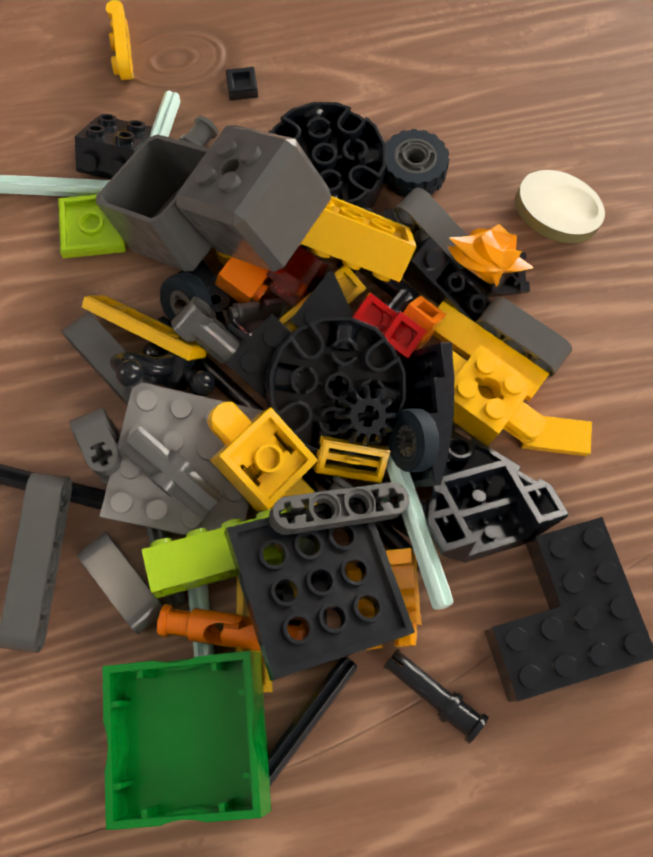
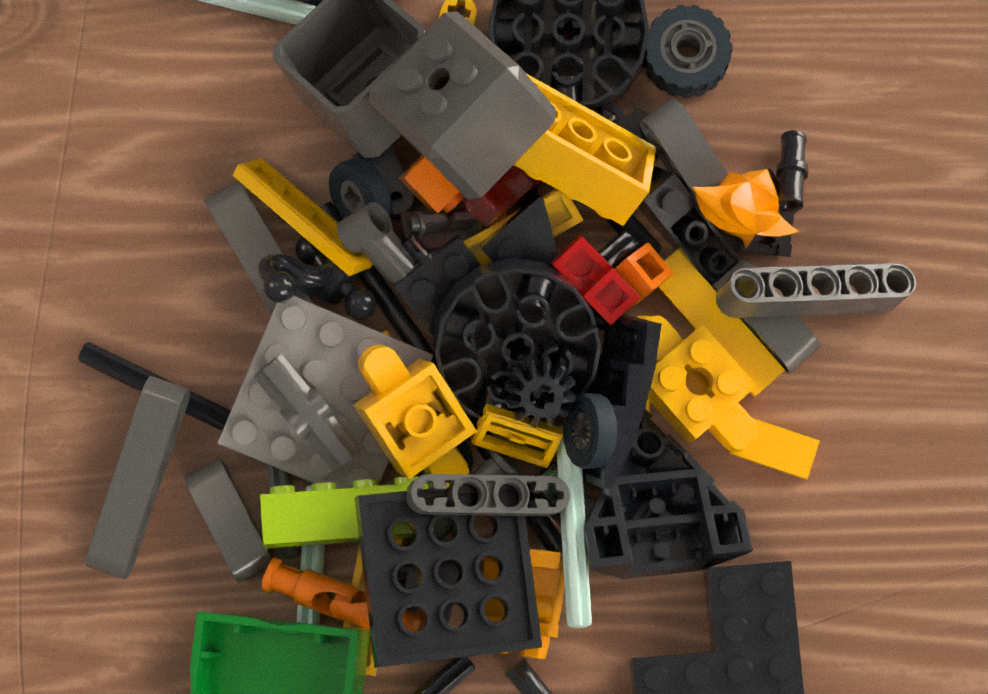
camera: 15 degrees right, 10 degrees up
(86, 229) = (247, 60): lime plate -> none
(98, 442) = (229, 354): dark grey piece -> none
(516, 225) = (792, 171): none -> black pin
(558, 304) = (800, 298): none -> dark grey beam
(559, 206) = (858, 150): piece -> none

